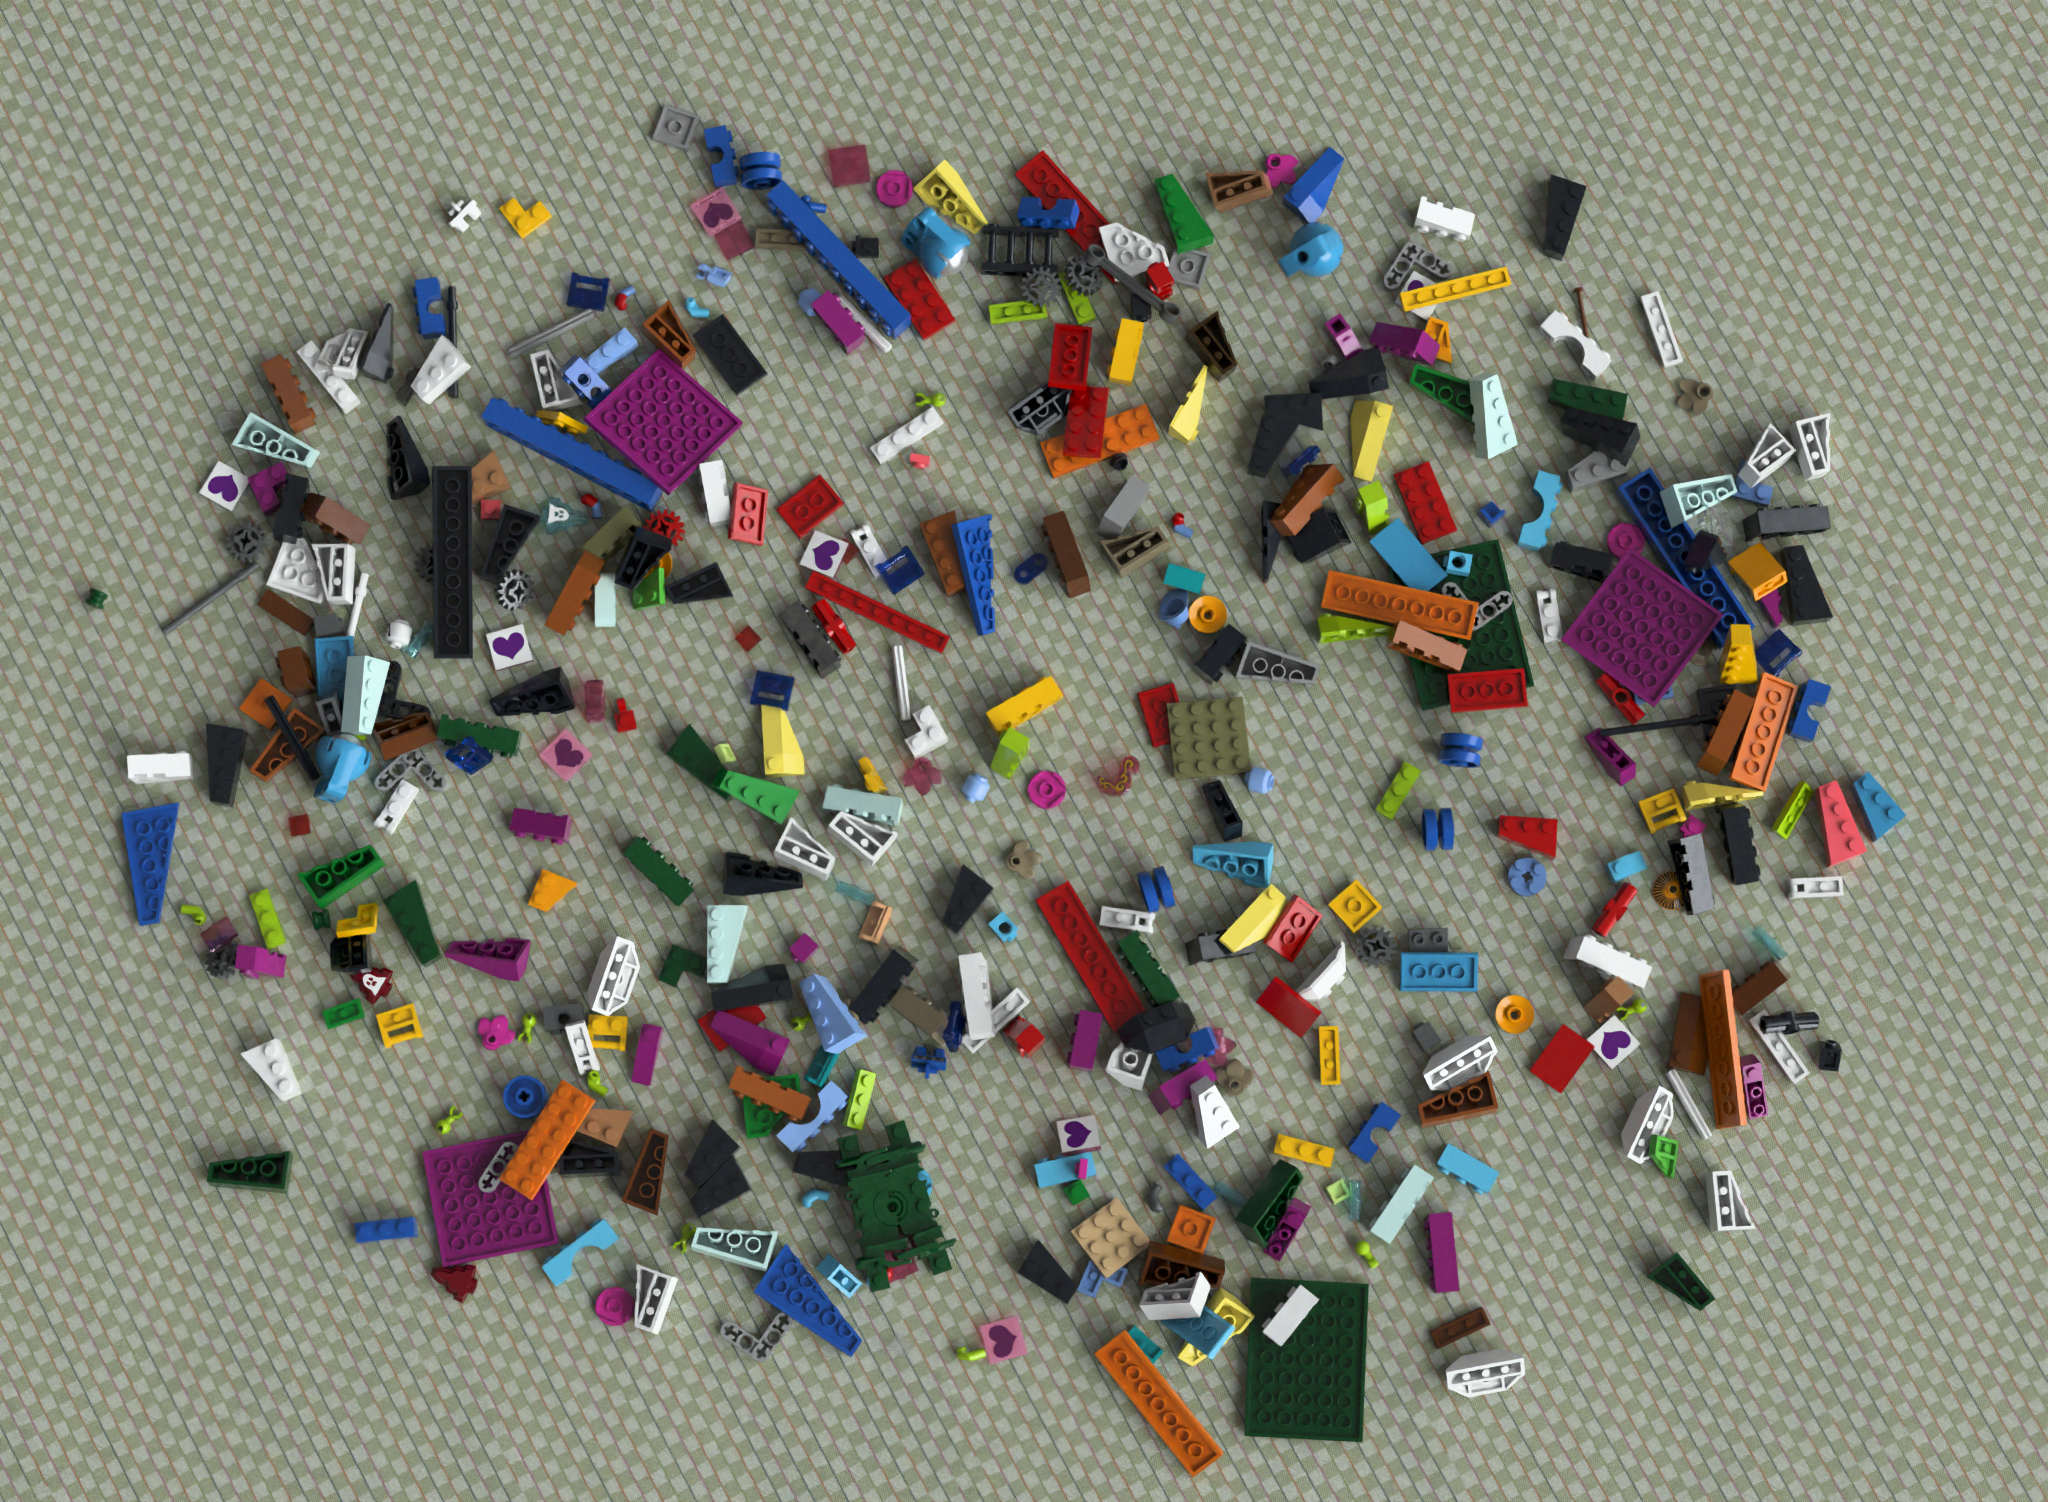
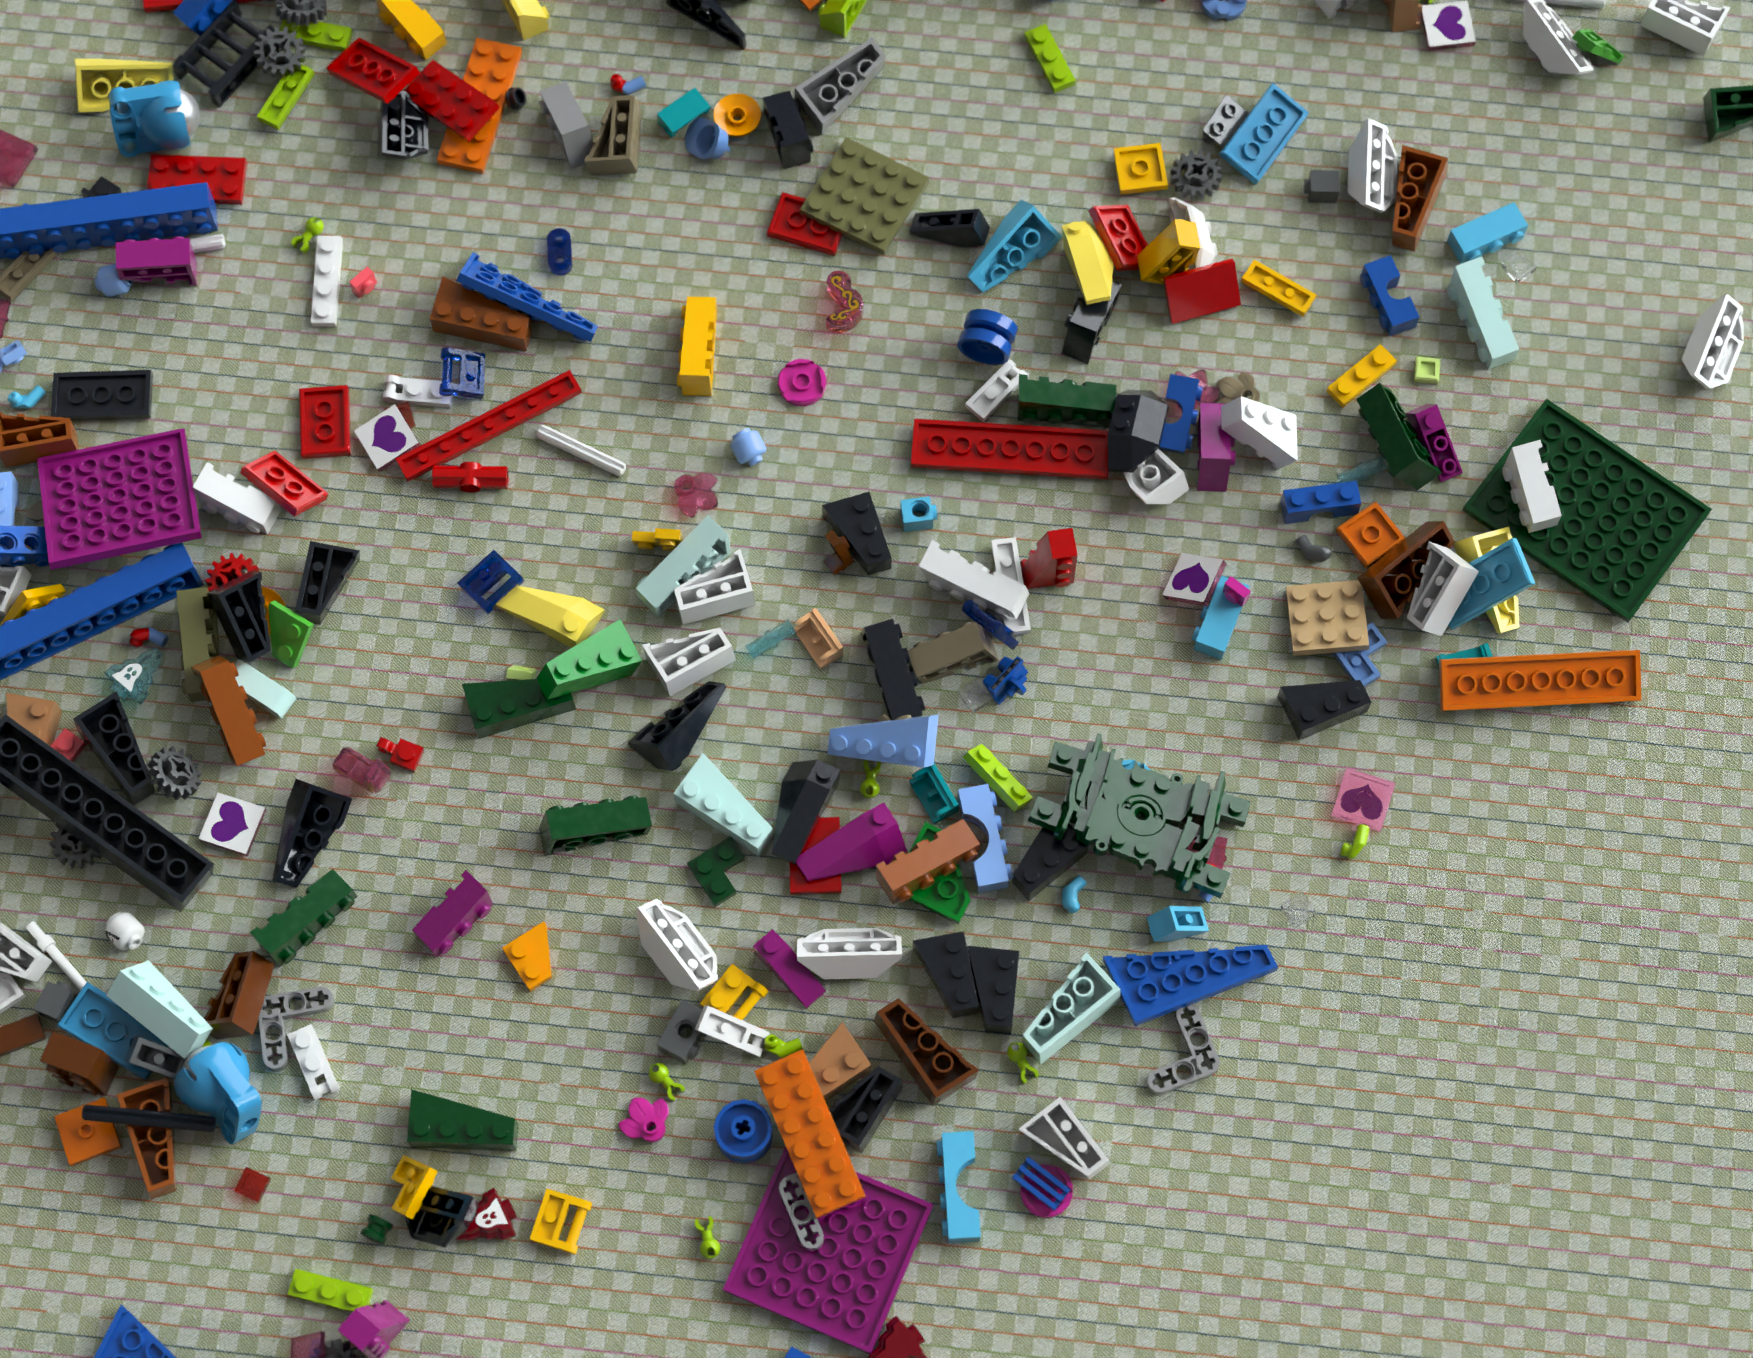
camera: 55 degrees left, 10 degrees down
(160, 767) = (66, 1296): white wedge -> none
(225, 760) = (110, 1214): black wedge -> none
(339, 876) = (343, 1174): green wedge -> none
(343, 1014) = (501, 1276): green plate -> none
(390, 698) = (188, 989): black beam -> none
(420, 639) = (148, 913): clear light blue pin -> none
(473, 760) = (326, 940): clear blue plate -> none
(500, 959) = (568, 1058): magenta wedge -> none
(566, 755) = (396, 842): clear pink tile -> none
(606, 1301) = (1023, 1170): none -> blue tile
(681, 1083) = (849, 952): none -> white wedge
(748, 639) = (416, 572): clear red tile -> none
(803, 949) = (792, 729): magenta brick -> none
(810, 639) = (467, 507): black wedge -> none
(894, 189) = (63, 131): dark pink tile -> none
(930, 735) = (656, 453): white brick -> none
(939, 897) = (841, 557): none -> reddish brown bracket
(1010, 752) = (735, 382): lime wedge -> none
(1026, 859) = (859, 451): dark tan plate -> none
(1066, 554) = (573, 204): reddish brown wedge -> none
(1076, 1192) = (1252, 624): green plate -> none
(1084, 1041) = (1098, 510): magenta wedge -> none
(1259, 780) = (944, 174): light blue head -> none
(1293, 968) = (1169, 252): none -> yellow wedge
(1355, 1200) = (1449, 357): clear light blue pin -> none
(1362, 1248) = (1504, 382): lime arm -> none
(1434, 829) = (1118, 39): blue wheel -> none
(1443, 1252) = (1560, 309): magenta brick -> none
(1459, 1328) = (1649, 345): reddish brown tile -> none
(1516, 1004) = (1357, 83): light orange dish -> none
(1562, 1058) = (1433, 78): red tile -> none

